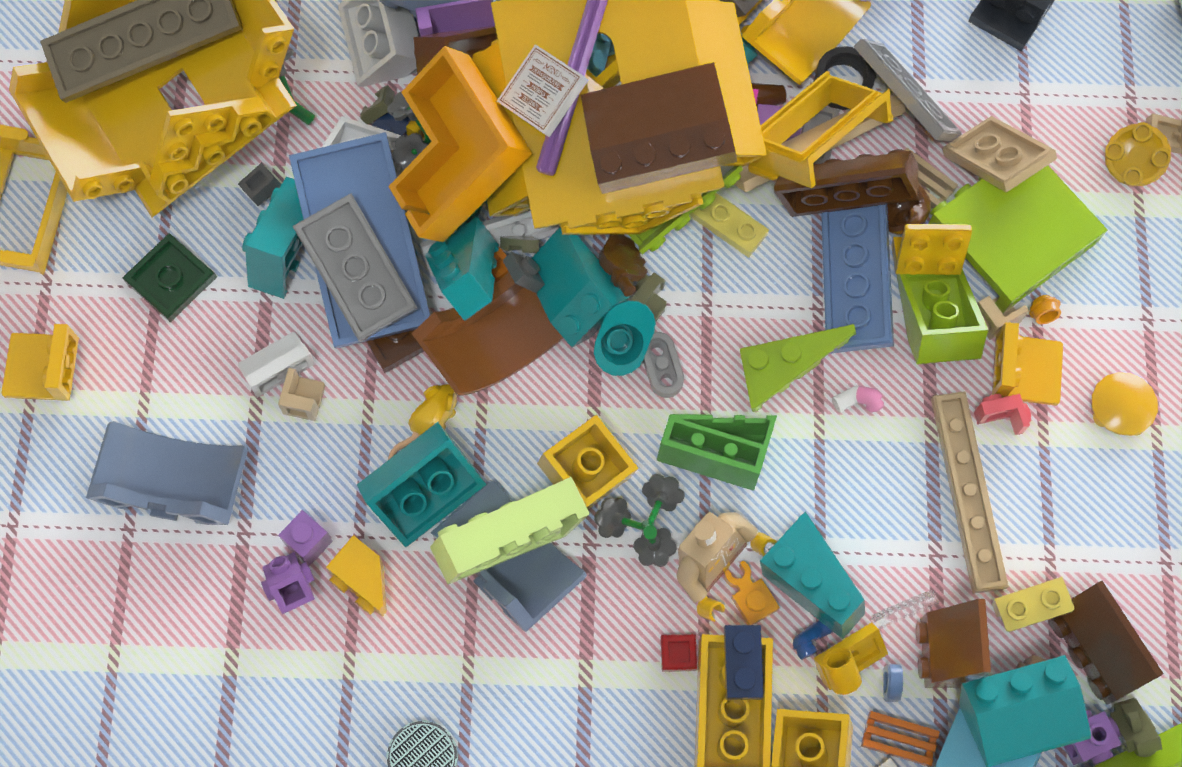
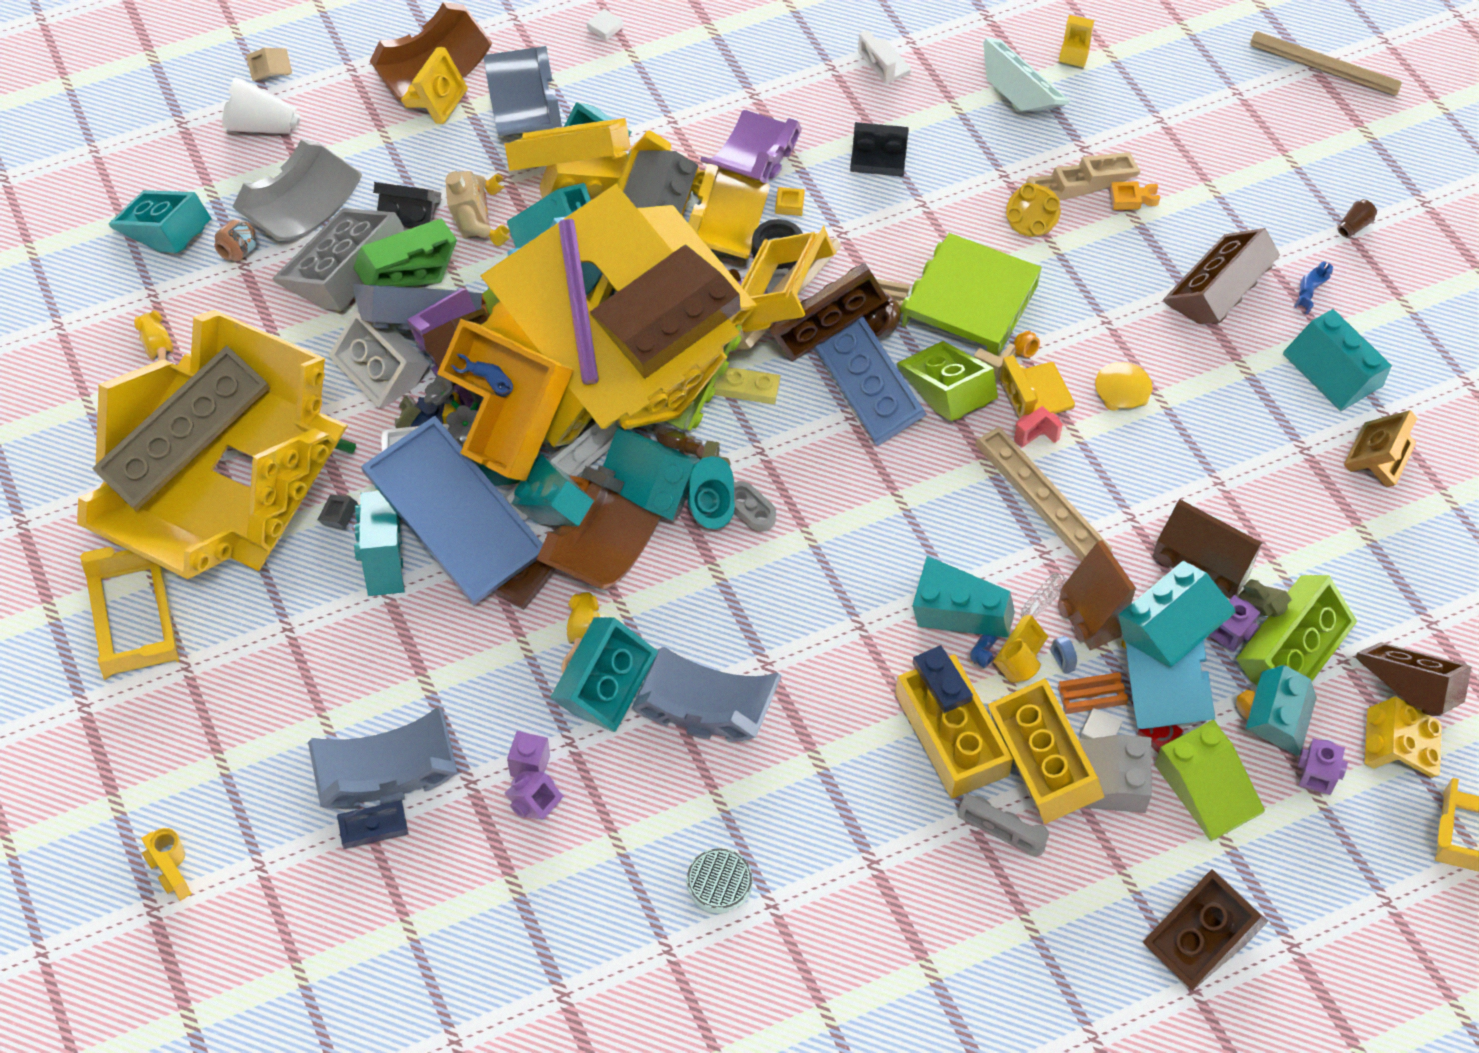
camera: 25 degrees left, 15 degrees down
(41, 365) = (218, 727): yellow bracket -> none
(129, 536) = (372, 824): none -> dark blue plate
(169, 277) = (295, 616): dark green tile -> none
(270, 365) = (427, 641): white panel -> none
(301, 396) = (464, 657): tan panel -> none
(355, 267) = (462, 529): light grey tile -> none
(362, 573) = (591, 765): yellow slope -> none
(456, 119) = (492, 373): none -> blue arm
(509, 531) = (702, 667): yellowish green wedge -> none
(527, 244) = (591, 461): olive tile -> none
(542, 90) = (558, 319): white tile -> none
(591, 459) = (733, 600): yellow brick -> none
(653, 545) = (806, 600): dark grey plant -> none
(678, 653) = (884, 710): red tile -> none
(711, 551) = (869, 619): tan torso -> none
(718, 447) = (830, 544): bright green wedge -> none
(753, 599) = (914, 641): light orange plate -> none
(778, 363) = (843, 466): lime wing -> none
(858, 394) = (916, 464): arm -> none
(885, 29) = (790, 201): none -> yellow tile
(908, 90) = (834, 231): light grey tile -> none
(931, 249) = (916, 332): yellow bracket -> none
(999, 153) = (929, 247): tan tile -> none
(1033, 604) = (1140, 543): light yellow bracket -> none

